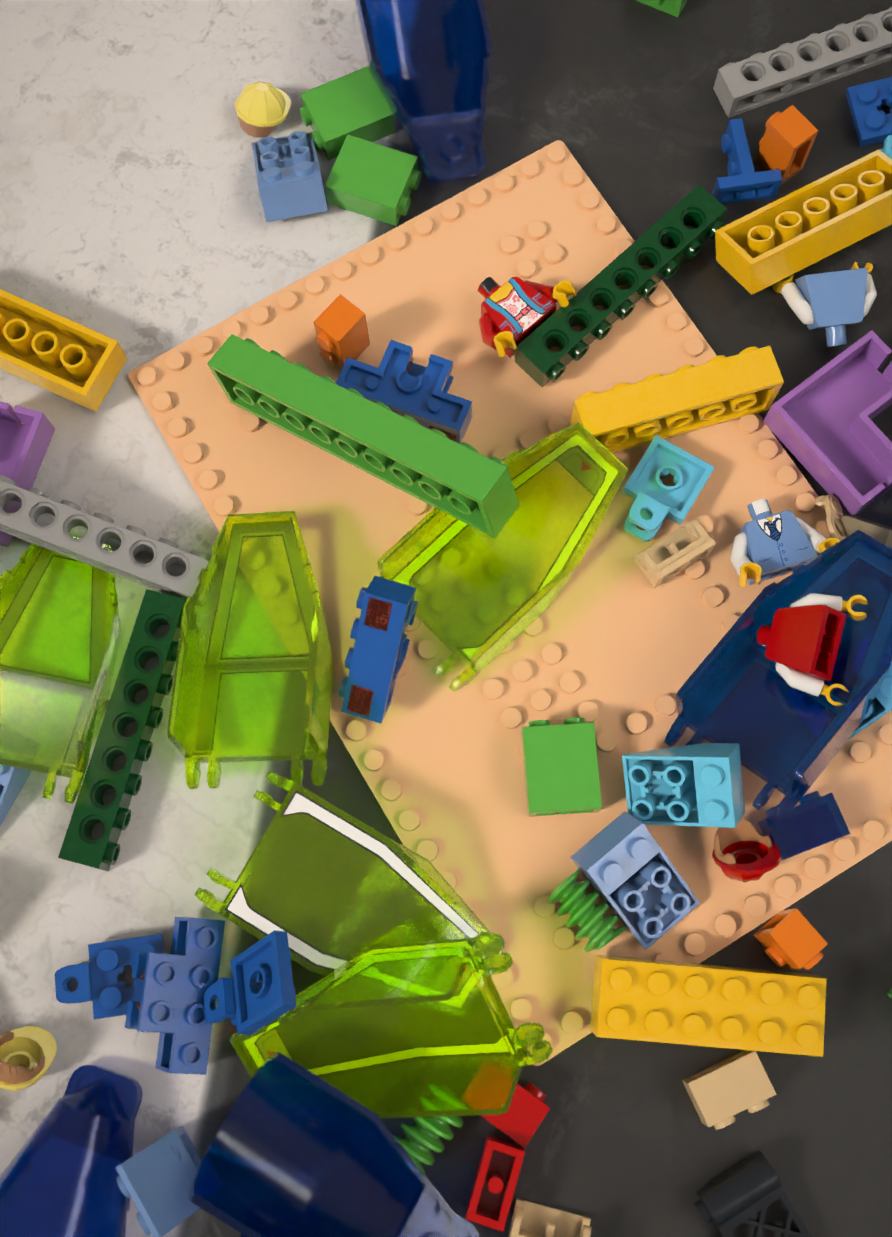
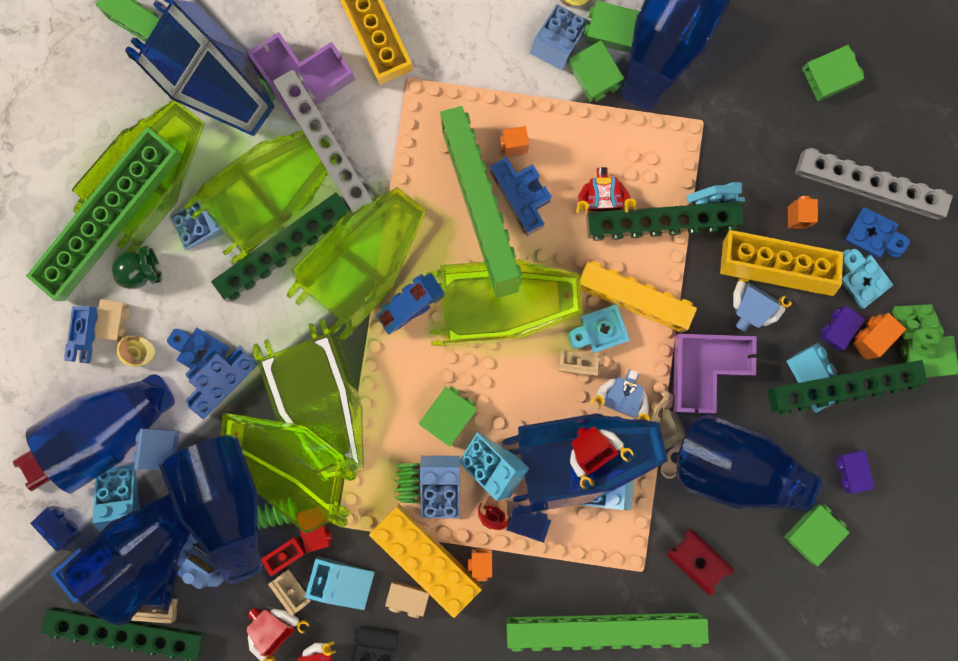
camera: 35 degrees right, 10 degrees up
(258, 988) = (240, 402): blue plate -> none
(612, 1153) = (339, 583): none -> medium azure slope
(660, 197) = (714, 194): none -> medium azure plate
(742, 181) = (769, 216): blue bracket -> none

